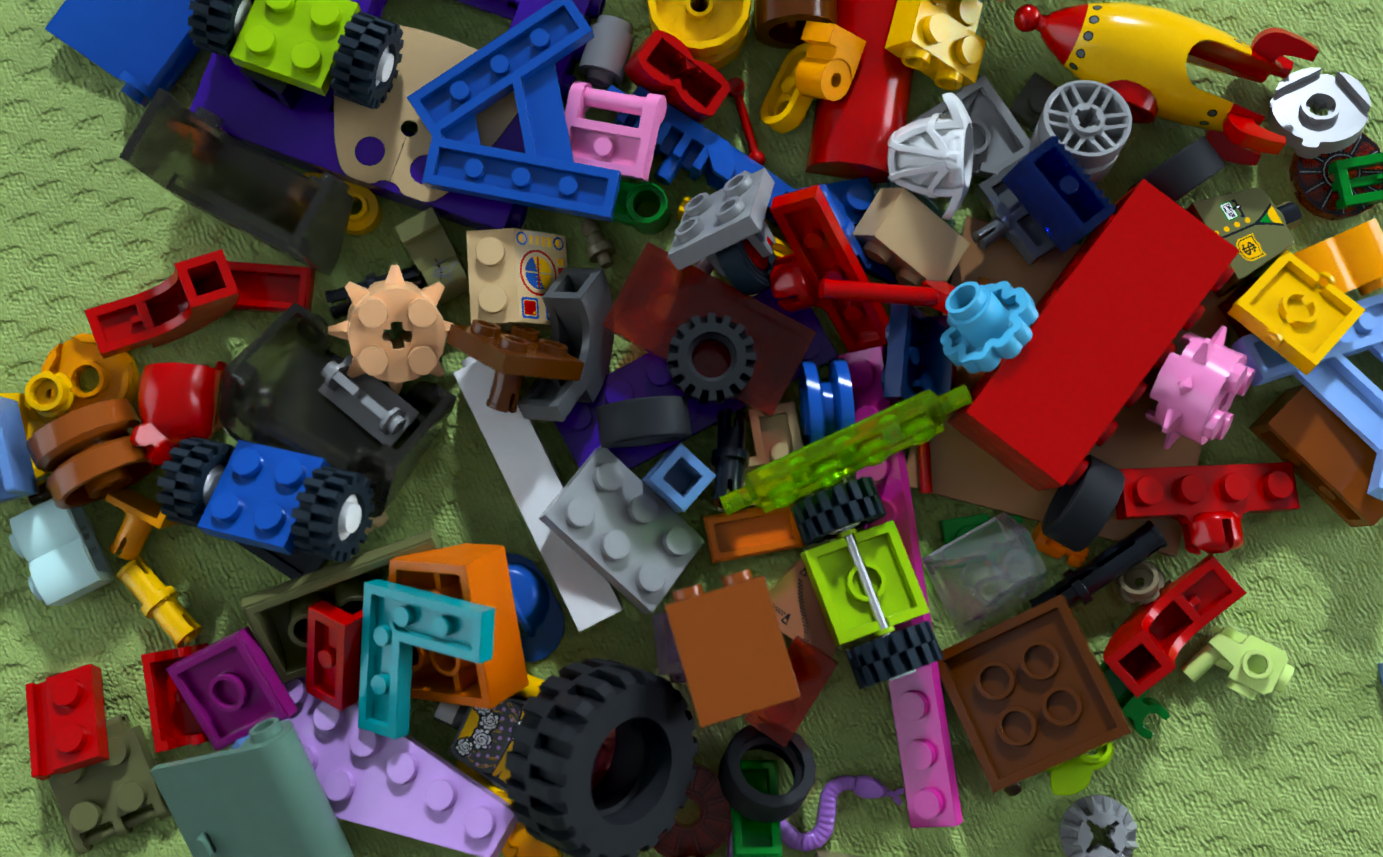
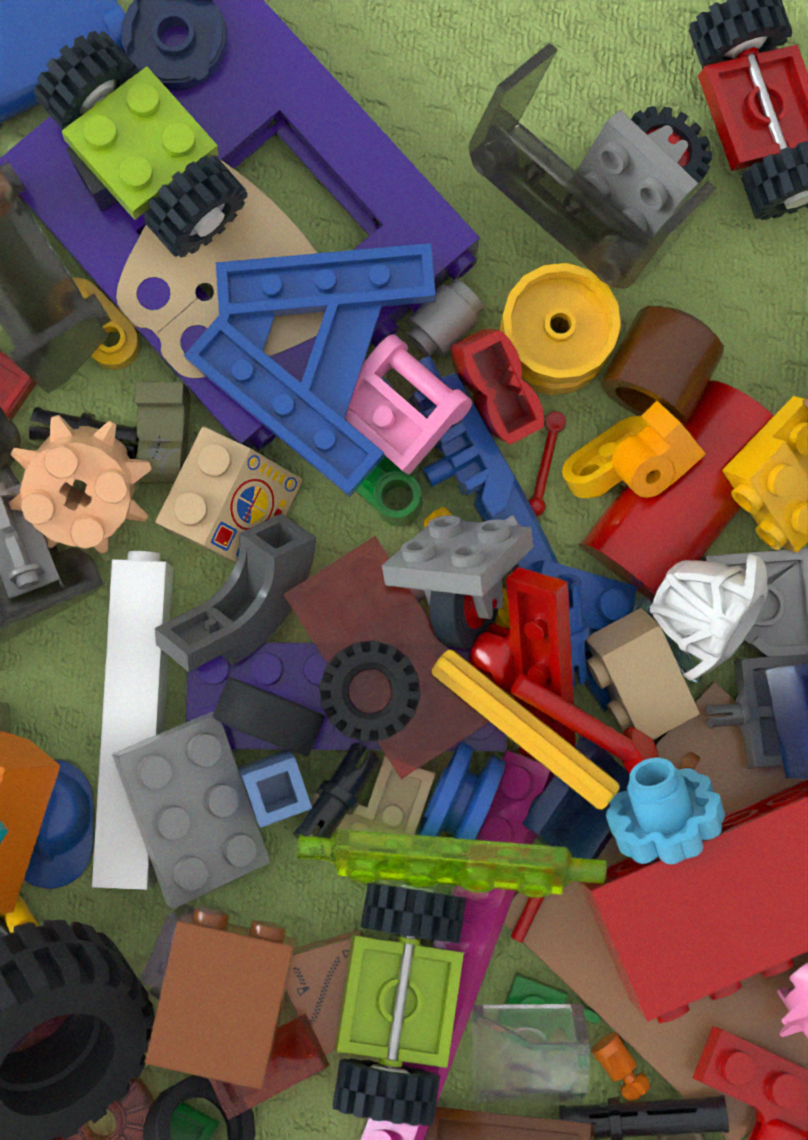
camera: 30 degrees right, 0 degrees up
(512, 357) = (176, 580): reddish brown plate -> none
(599, 248) = (329, 510): dark tan piece -> none
(751, 533) = (315, 882): orange tile -> none
(846, 322) = (525, 729): none -> yellow axle
(1083, 509) = (661, 1053): black tyre -> none

